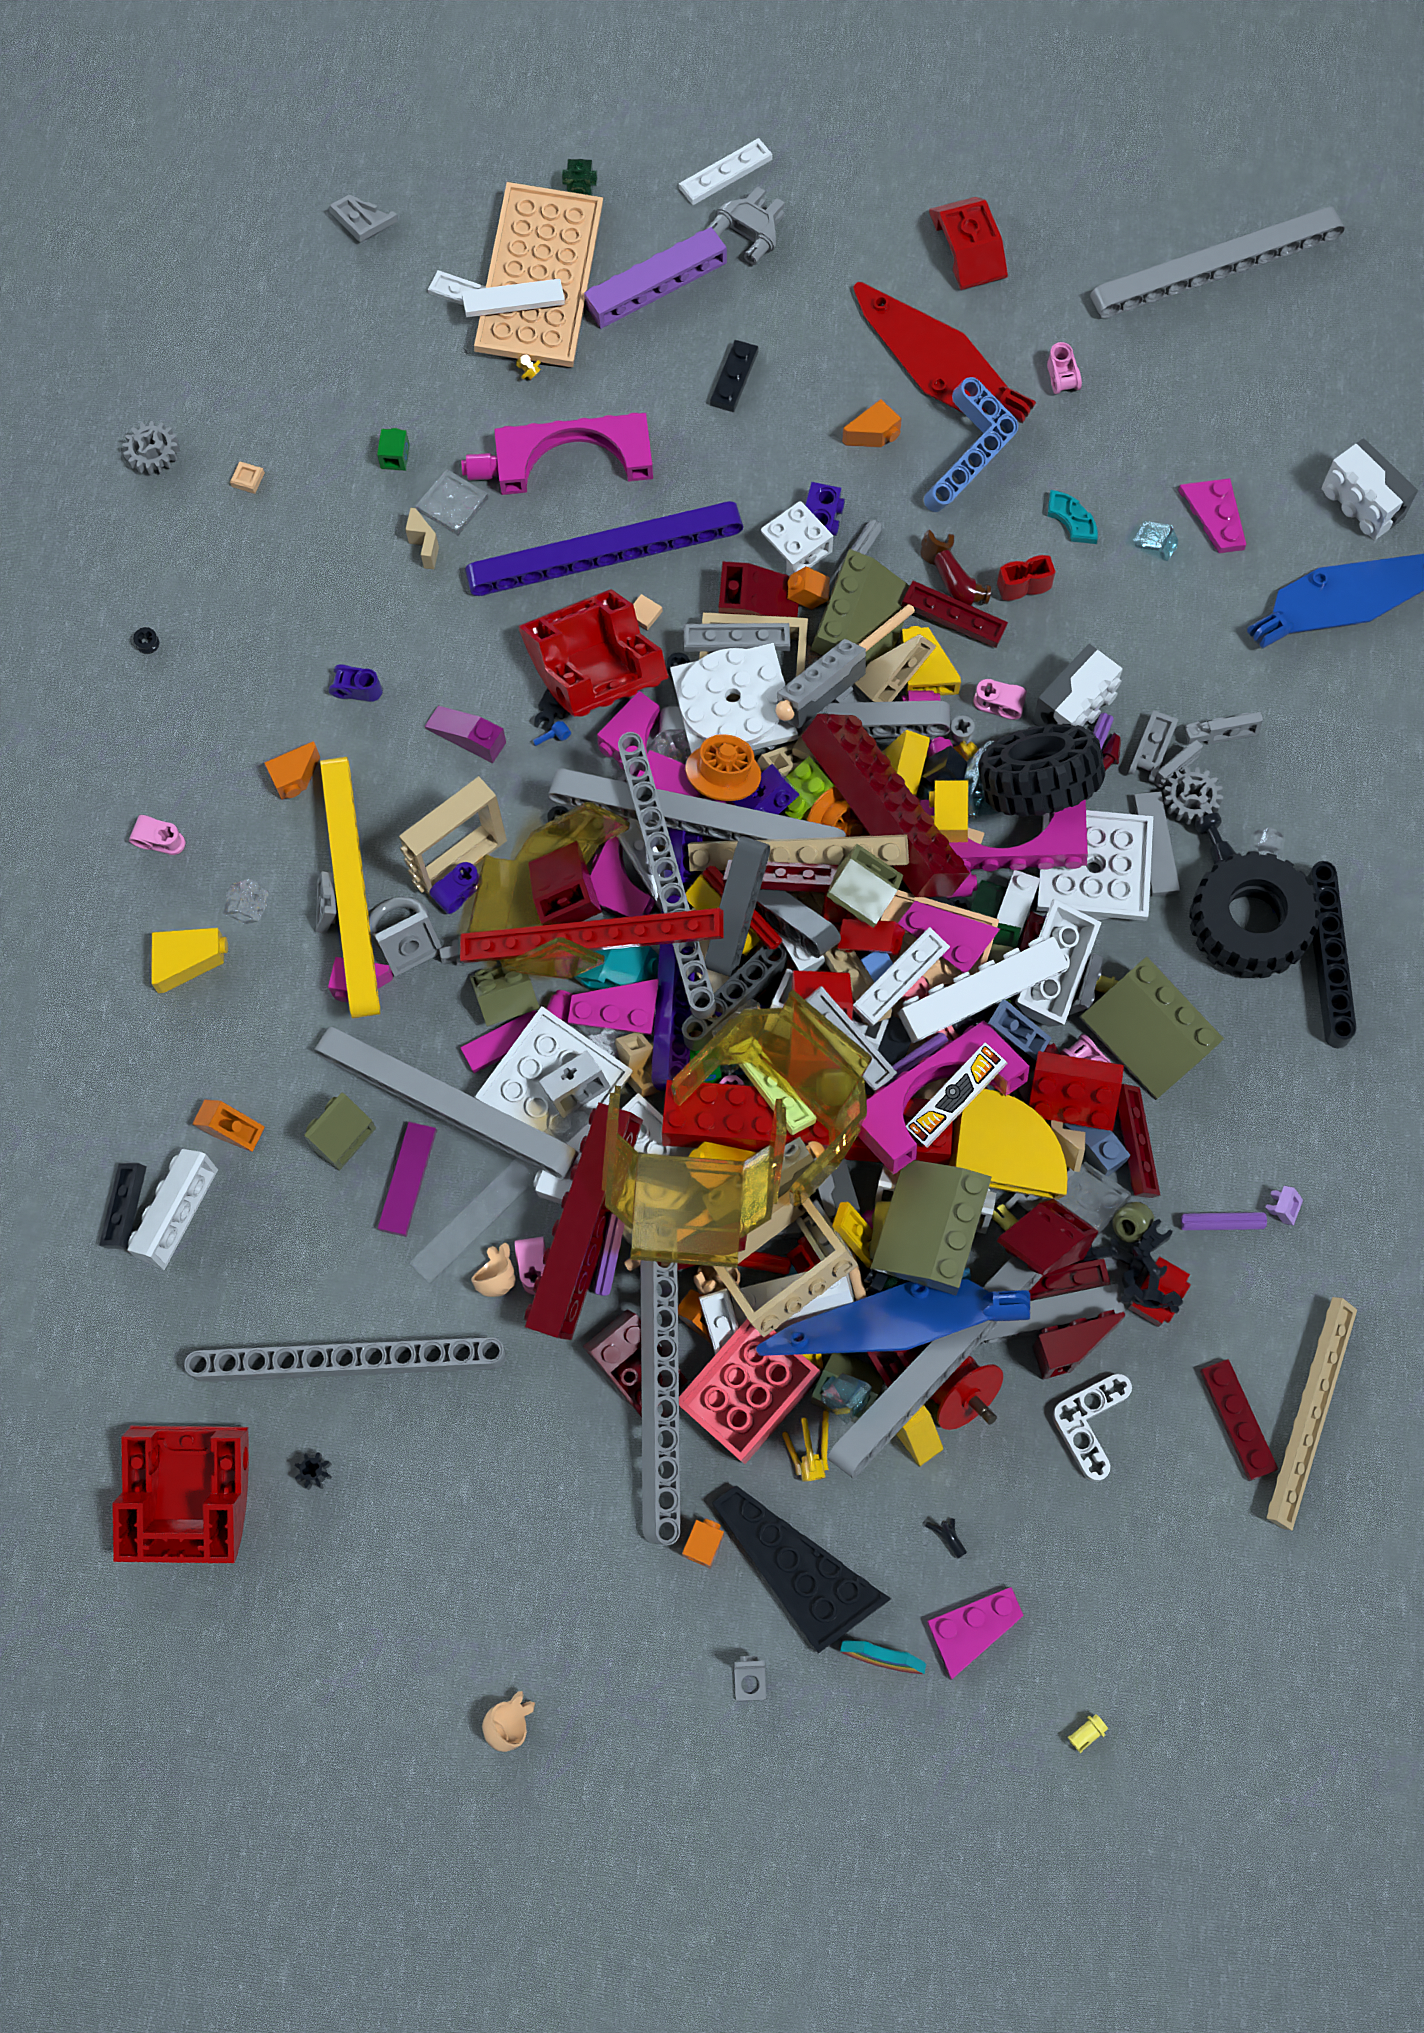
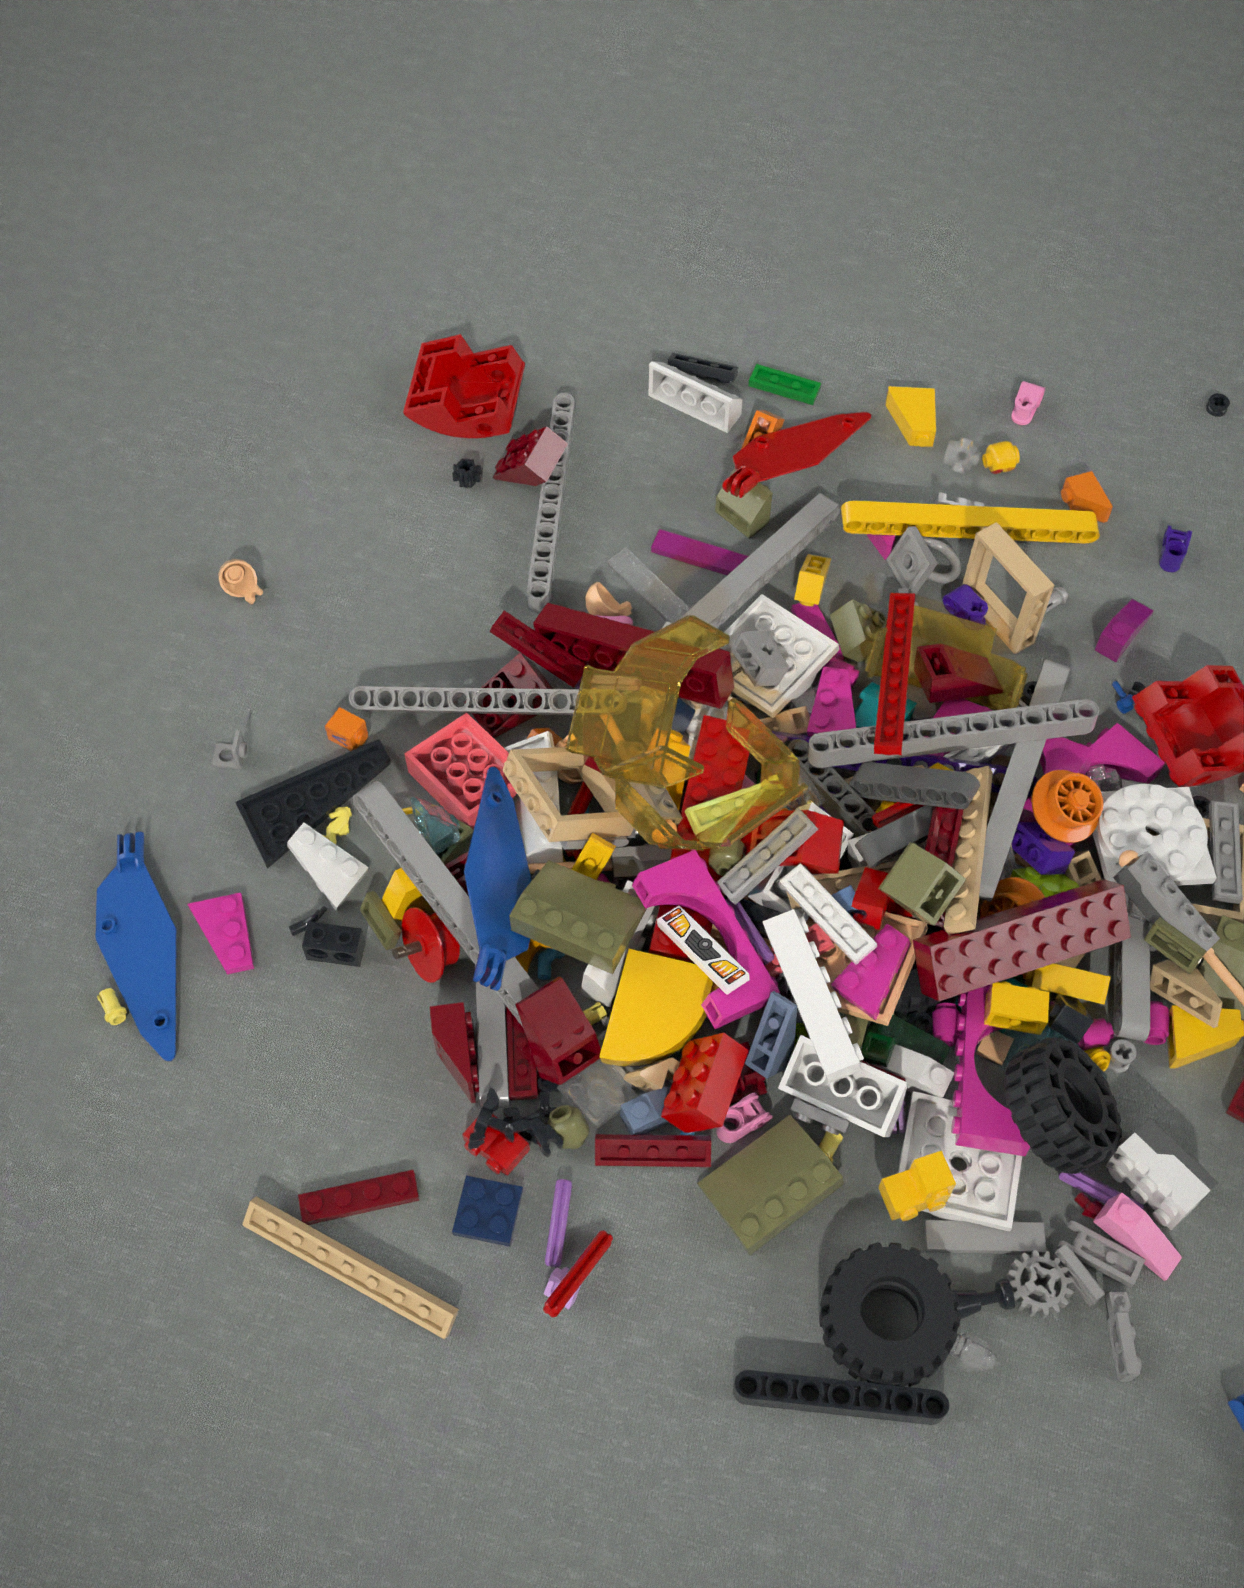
camera: 95 degrees right, 10 degrees down
(144, 1107) = (784, 384): none -> green plate
(245, 859) = (1001, 457): none -> yellow head
(263, 1080) = (790, 450): none -> red wing
(297, 1389) = (530, 458): none -> dark red slope
(432, 798) = (1057, 598): none -> light grey pin
(439, 1047) = (812, 580): none -> yellow slope
(580, 1333) = (538, 648): none -> dark red plate
(826, 1530) = (339, 825): none -> light yellow animal
(857, 677) = (1176, 942): none -> olive tile
(879, 1529) = (329, 865): none -> white wing
(883, 1657) = (223, 844): teal tile -> none
(938, 1455) = (380, 920): none -> olive tile
(976, 1499) = (333, 944): none -> black brick
(1003, 699) = (1161, 1104): bright pink piece -> none
(1007, 1723) = (139, 944): none -> blue wing
(1080, 1425) = (385, 1049): white beam -> none
(1131, 718) = (1138, 1234): none -> bright pink slope
(1140, 890) = (921, 1187): none -> yellow brick
(1225, 1290) = (487, 1211): none -> dark blue plate
(1279, 1188) = (577, 1274): none -> red axle

